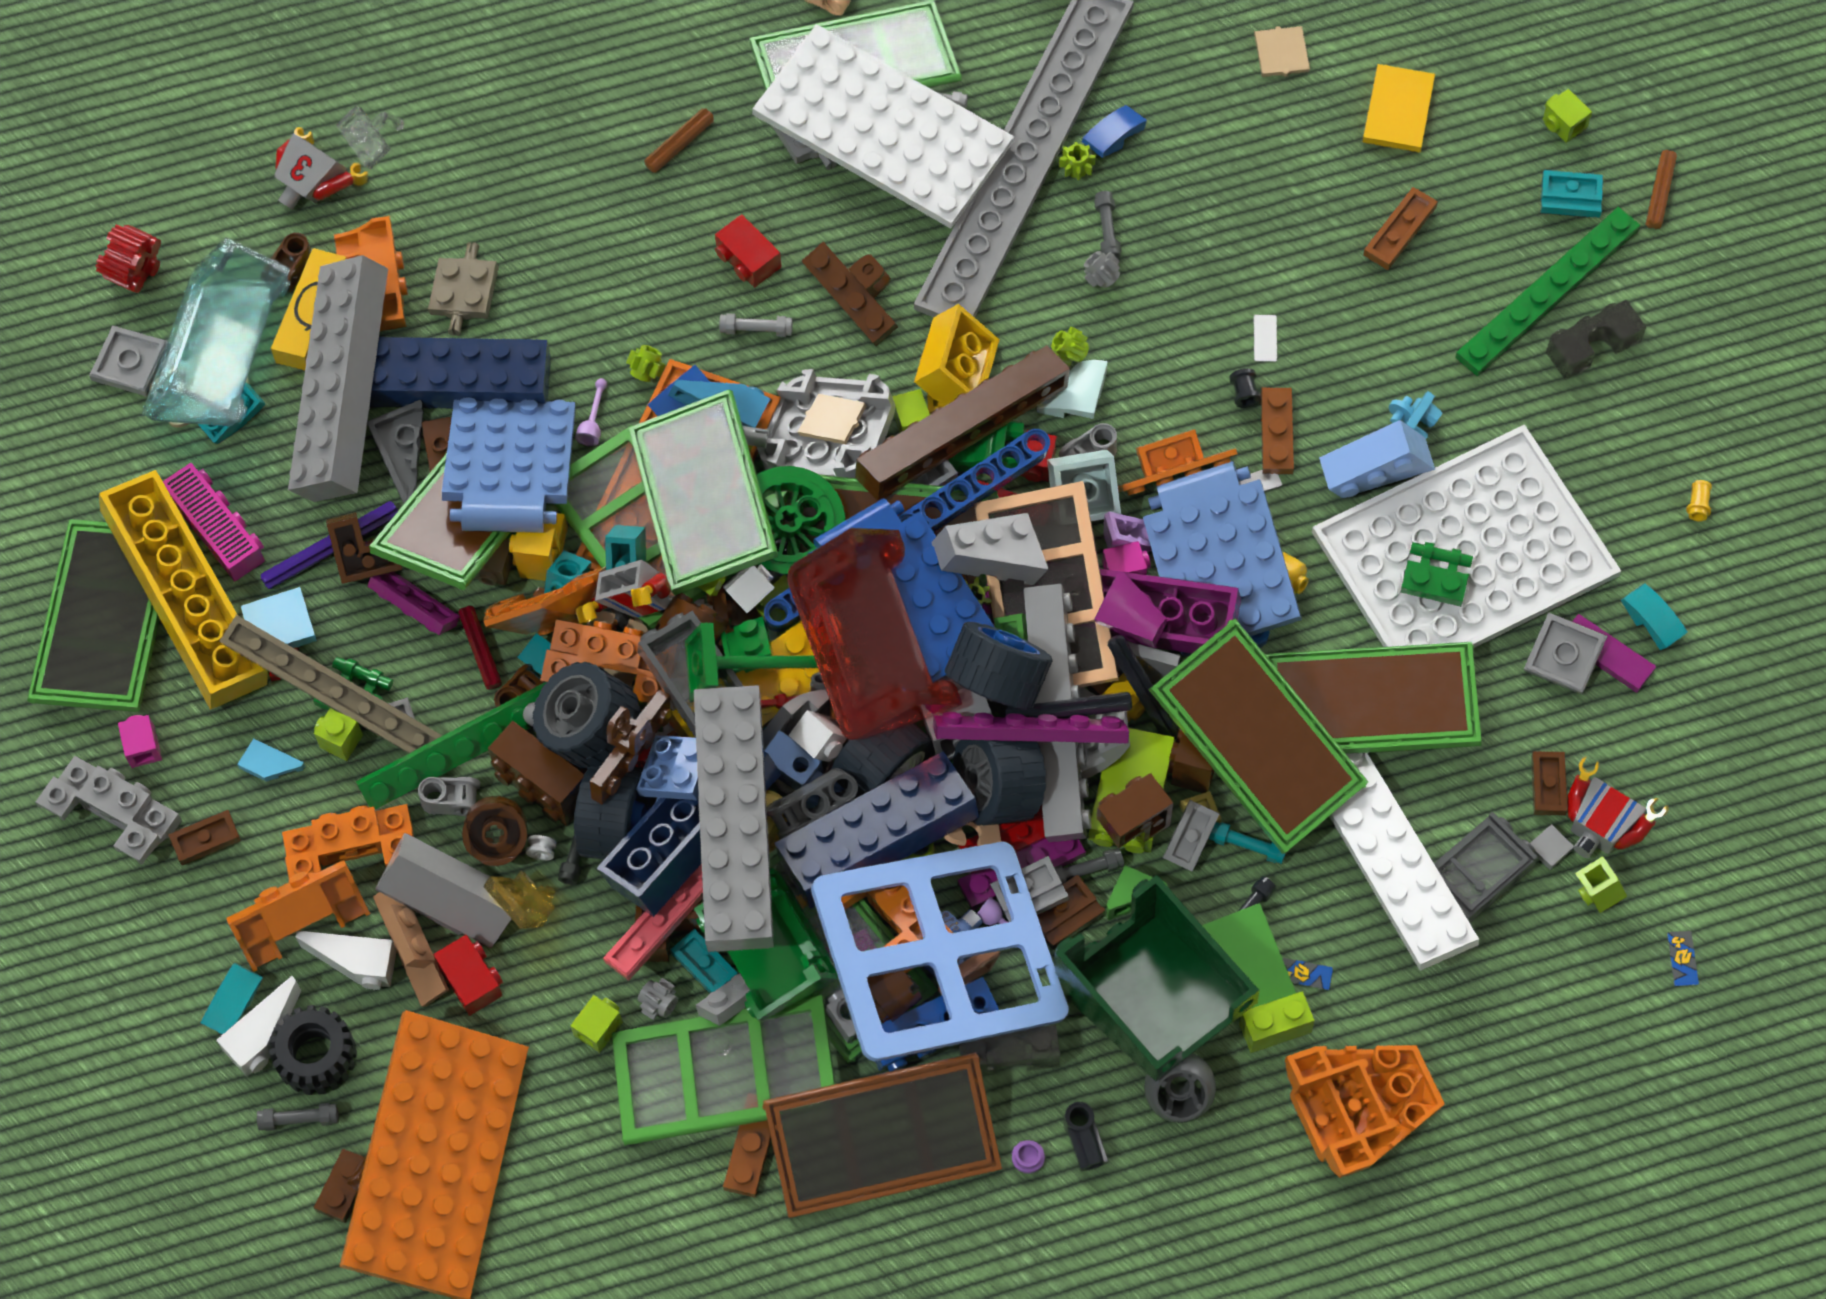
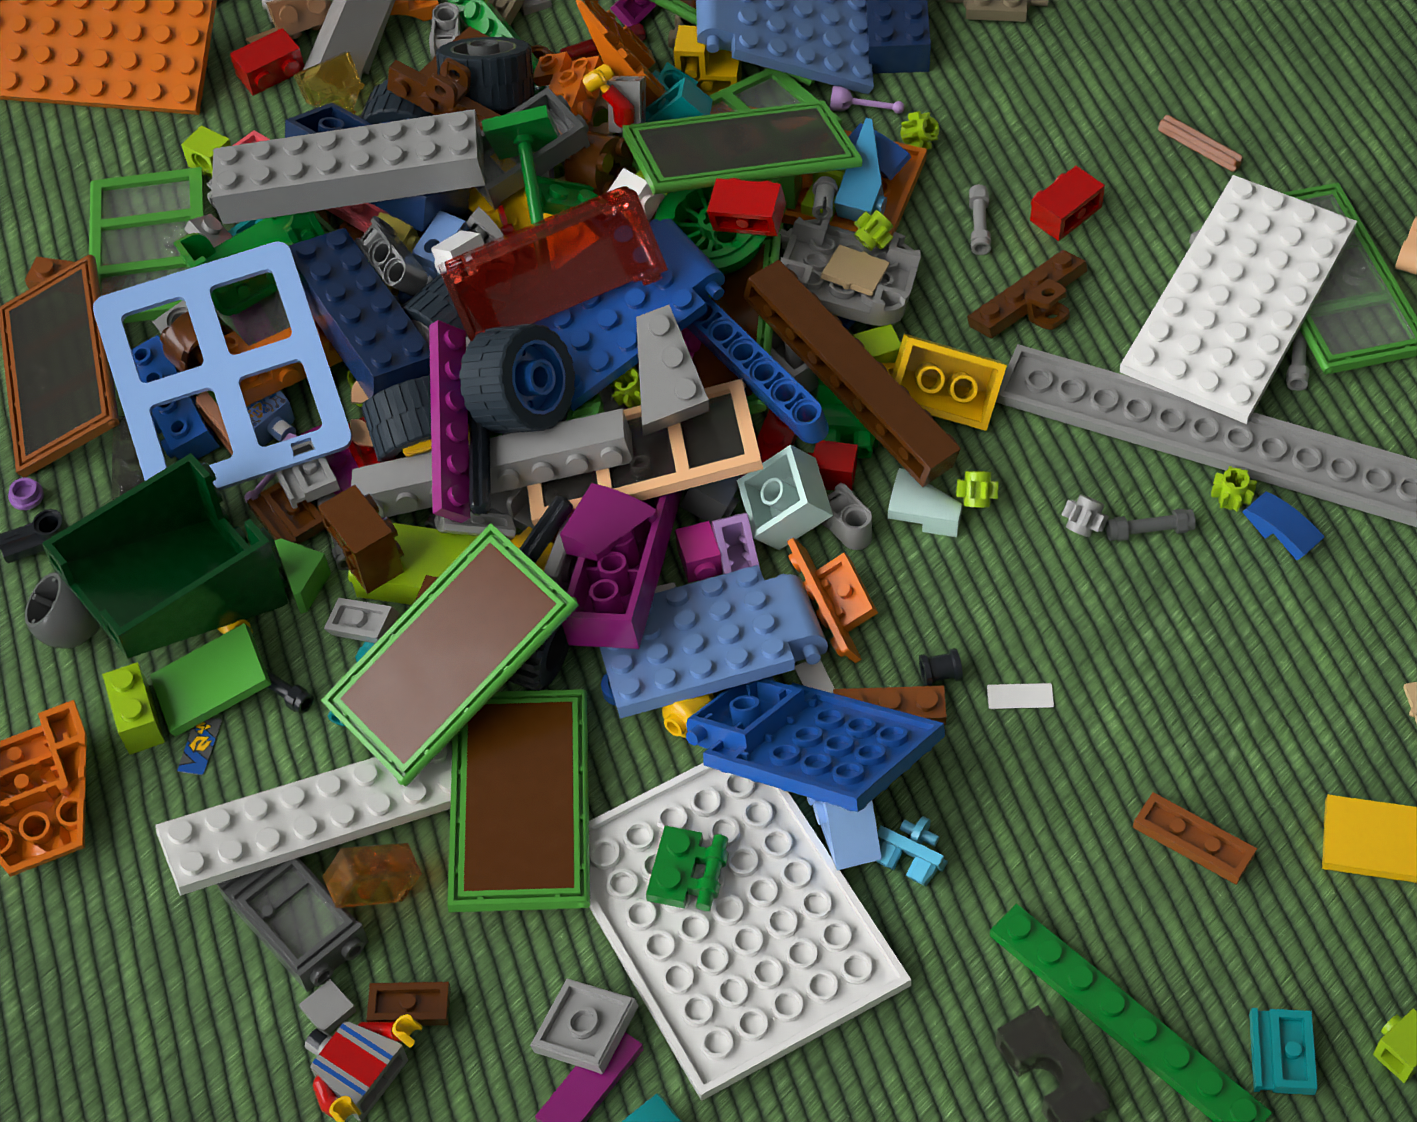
camera: 90 degrees right, 10 degrees down
(483, 844) = (399, 43): reddish brown brick -> none
(785, 401) = (873, 230): none -> lime gear
(795, 479) = (746, 207): none -> red brick
(1339, 468) = (810, 741): none -> blue plate
(1448, 805) = (371, 875): none -> clear orange brick
(1600, 885) = (260, 1053): lime brick -> none

